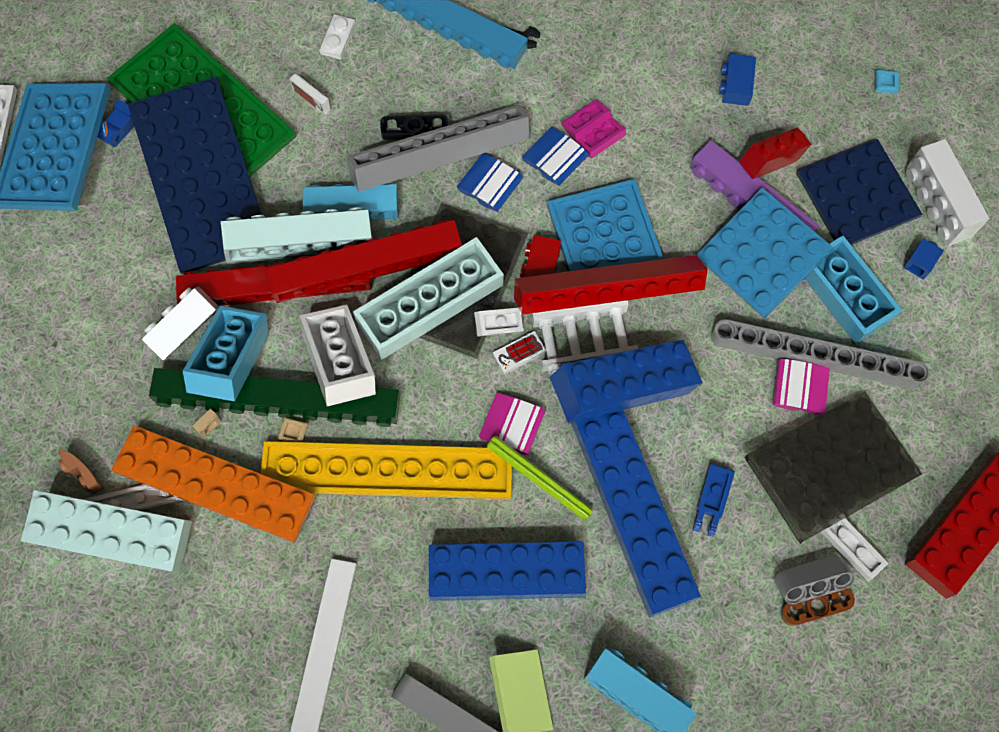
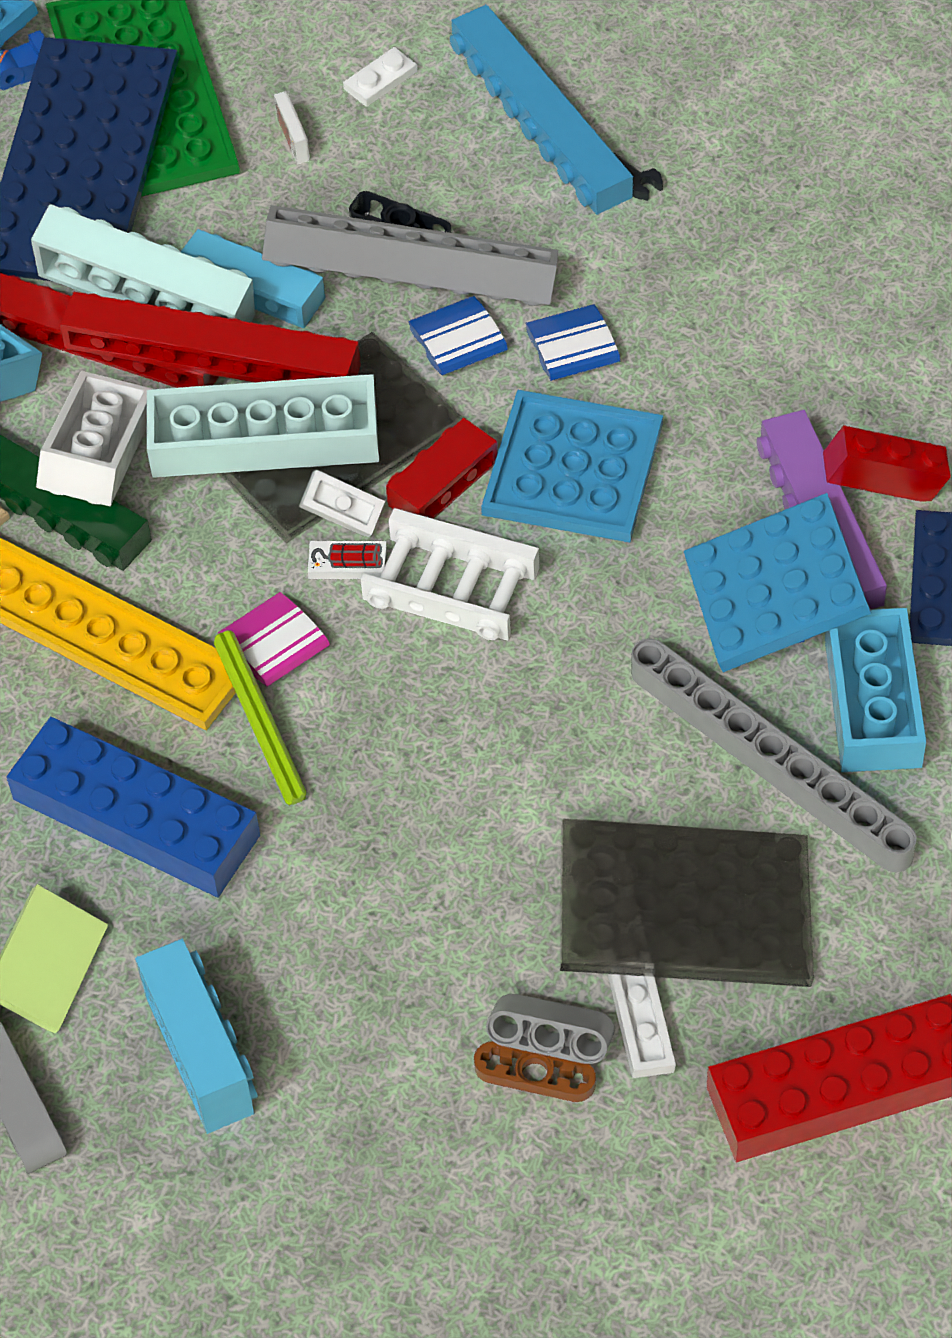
camera: 35 degrees right, 15 degrees down
(593, 128) = (654, 332): dark pink slope -> none
(609, 284) = (522, 519): red brick -> none
(625, 380) = (453, 639): blue brick -> none
(636, 513) = (366, 793): blue brick -> none
(713, 497) = (484, 862): blue hinge -> none
(738, 79) = (909, 356): blue brick -> none
(801, 386) = (716, 784): dark pink slope -> none

